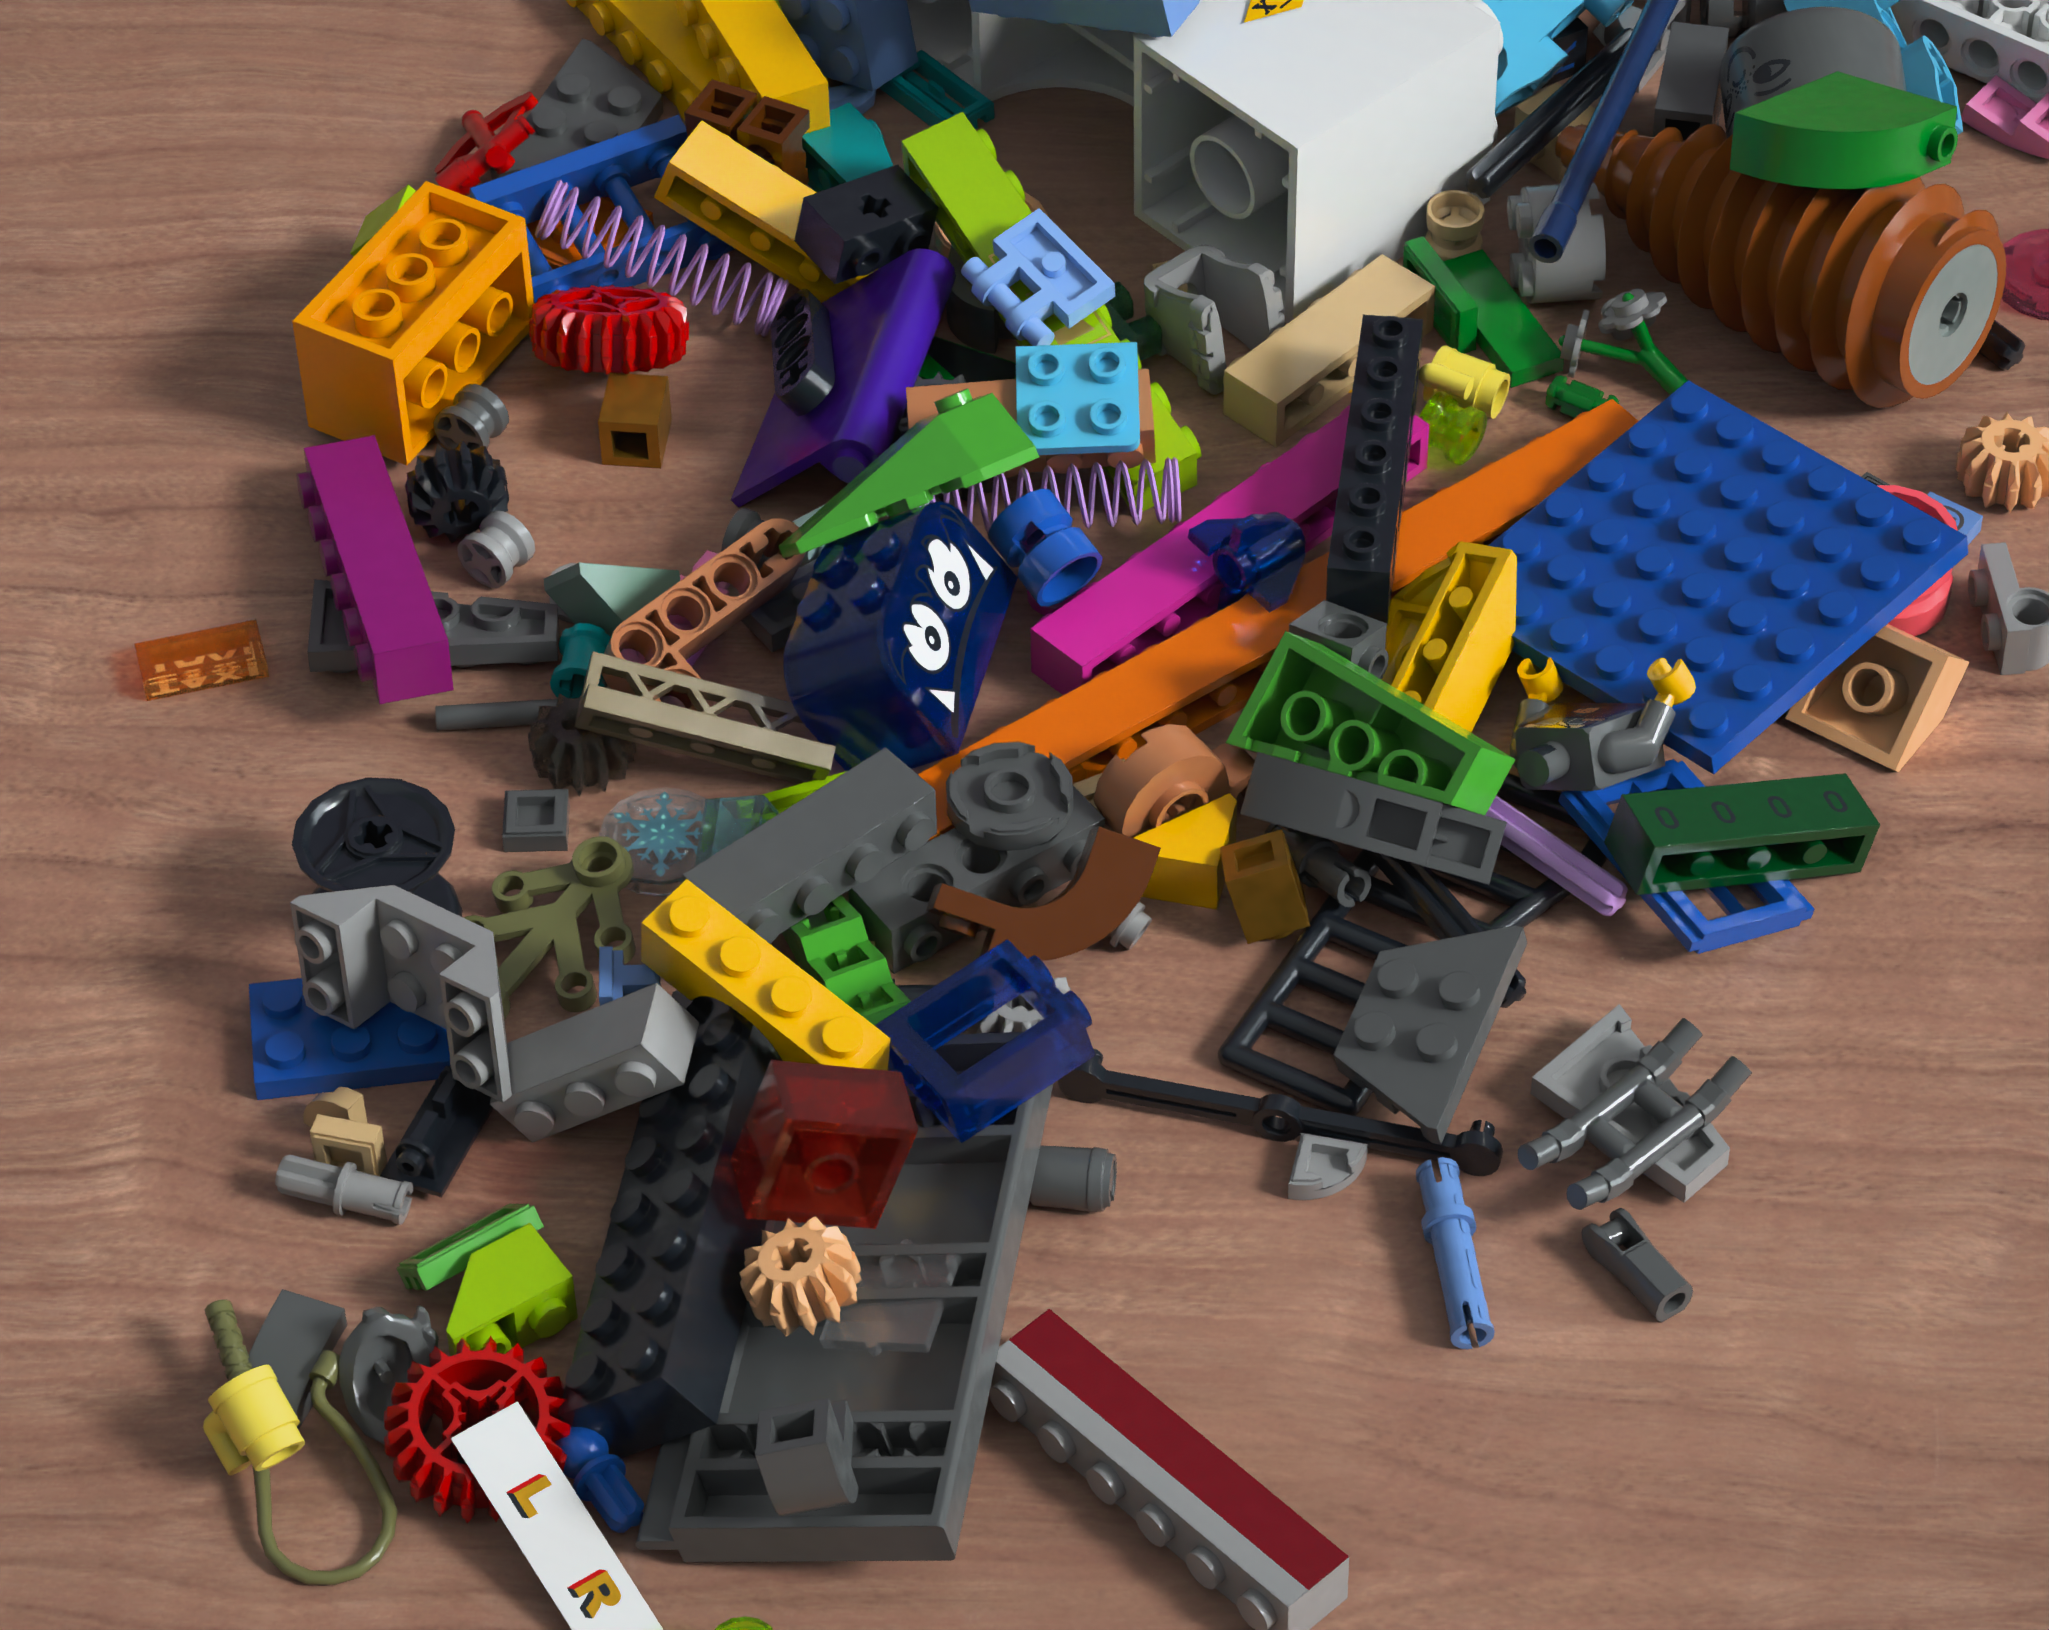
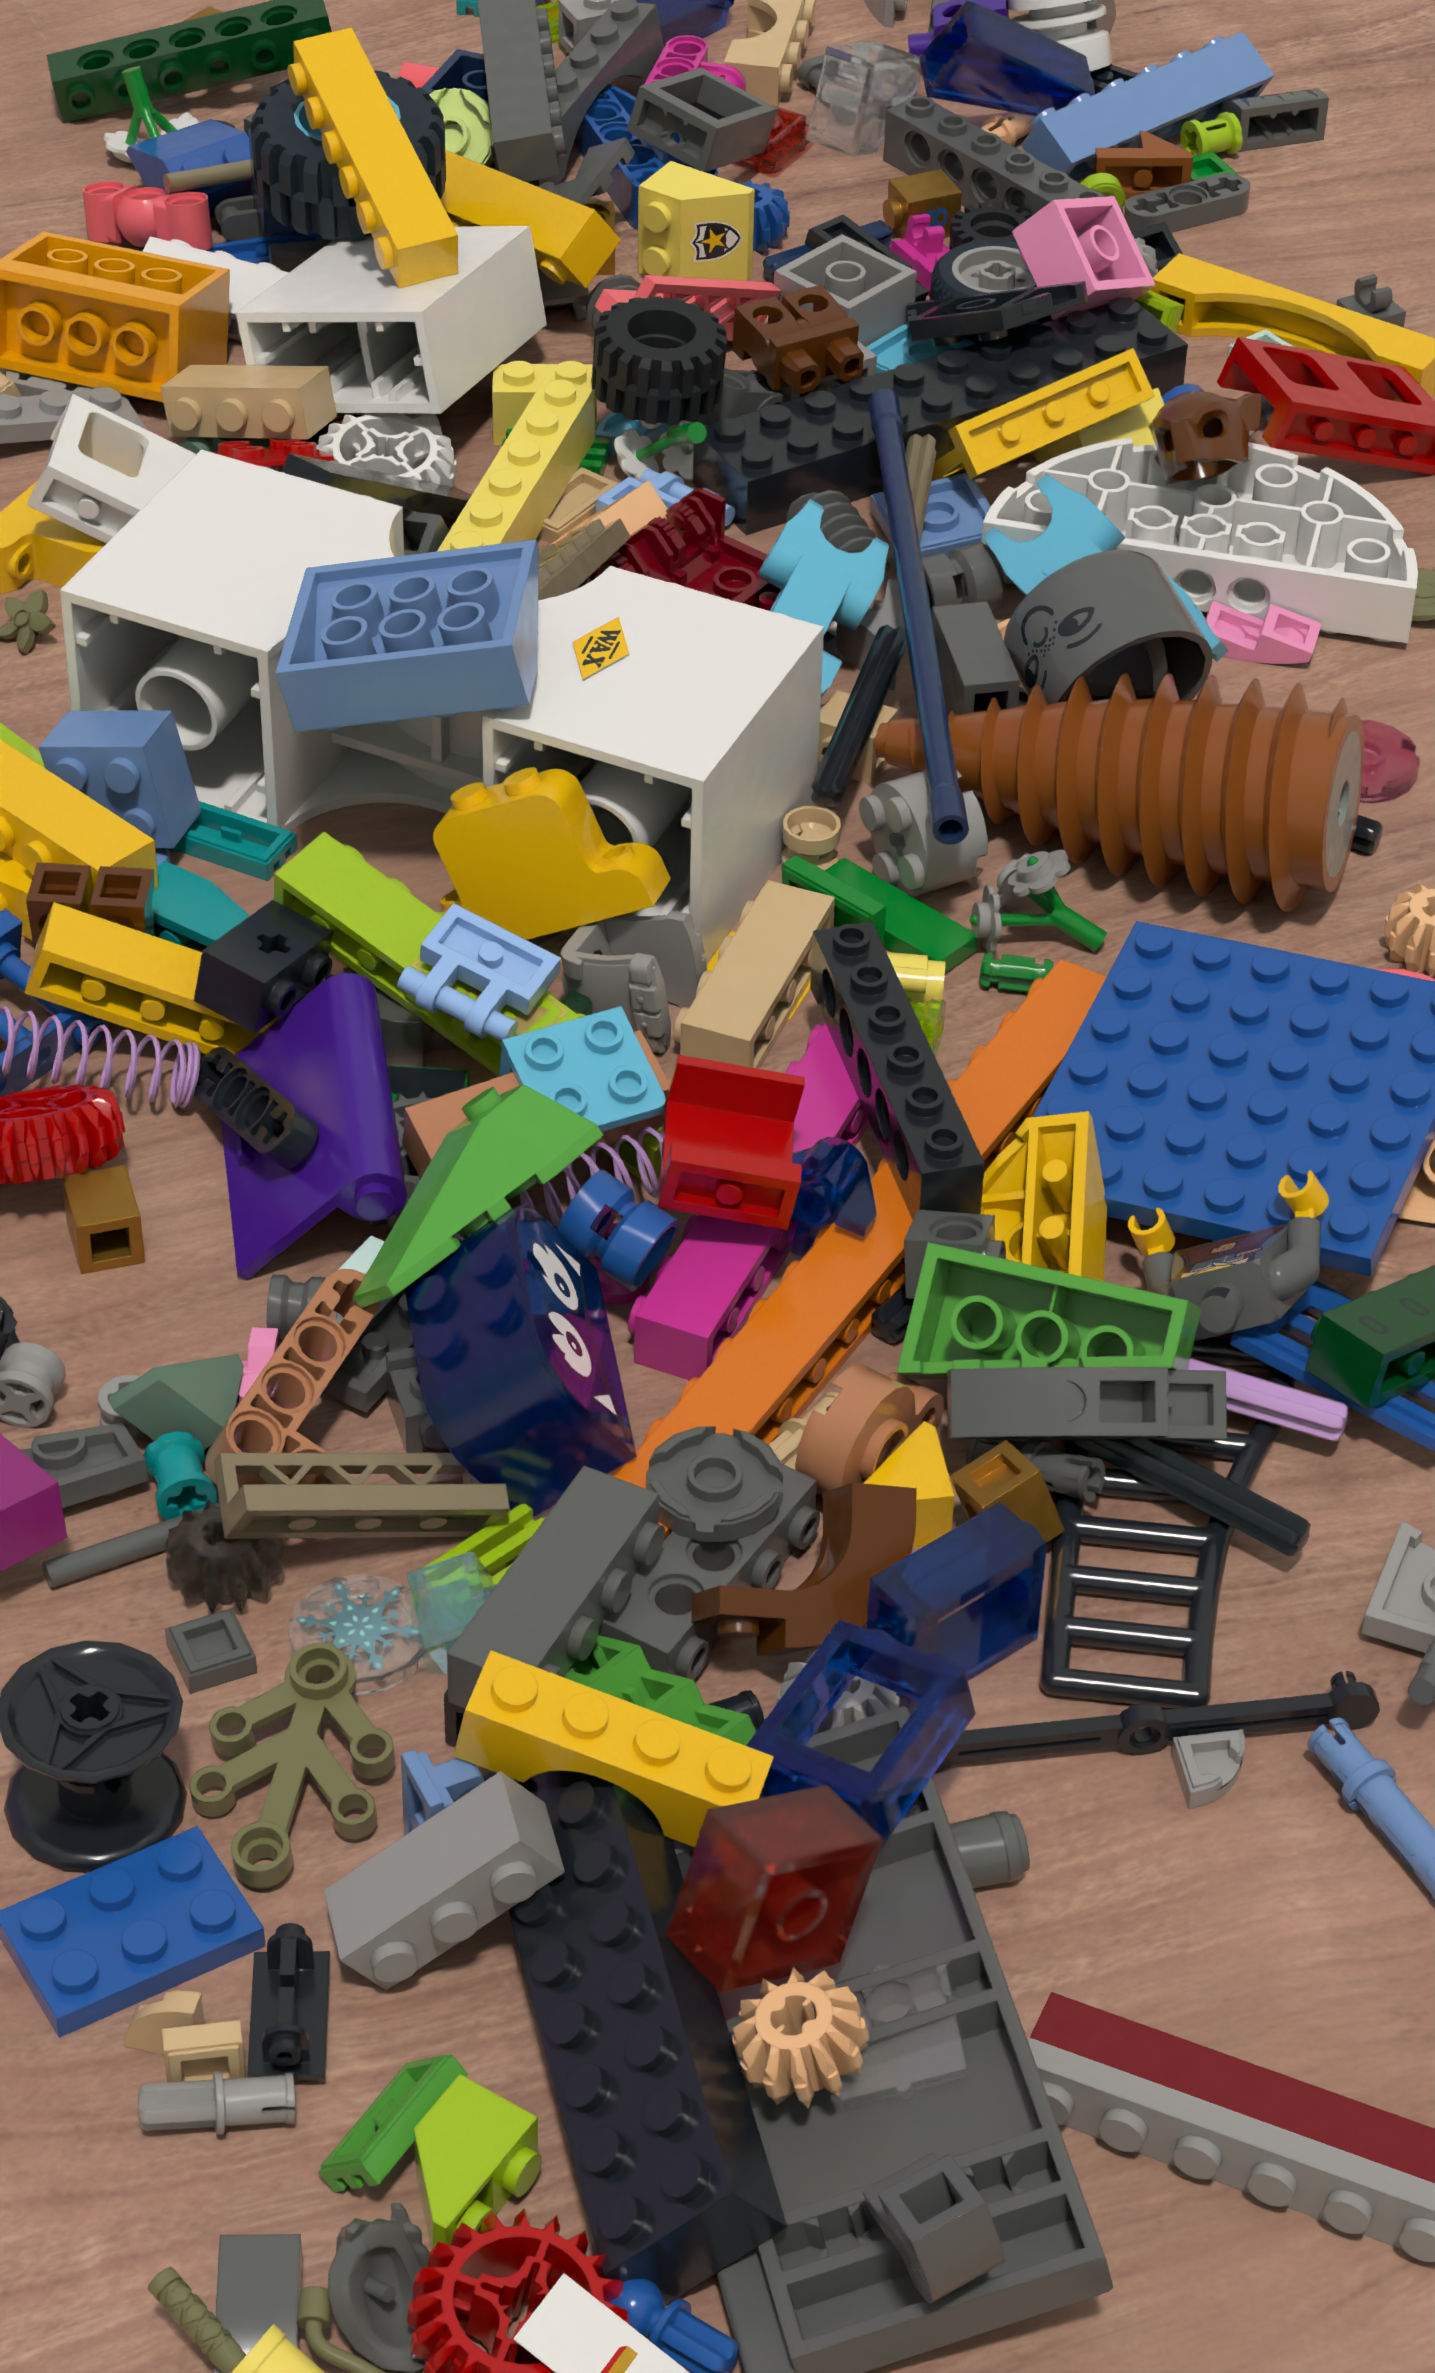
camera: 25 degrees left, 5 degrees down
(398, 948) = (215, 1830): light grey slope -> none
(1154, 185) = (537, 857): none -> yellow brick
(1155, 930) = (984, 1555): none -> clear blue window
(1175, 495) = (730, 1142): none -> red panel
(1428, 1021) = (1244, 1591): dark grey wing -> none
(1843, 135) = (1198, 656): green brick -> none

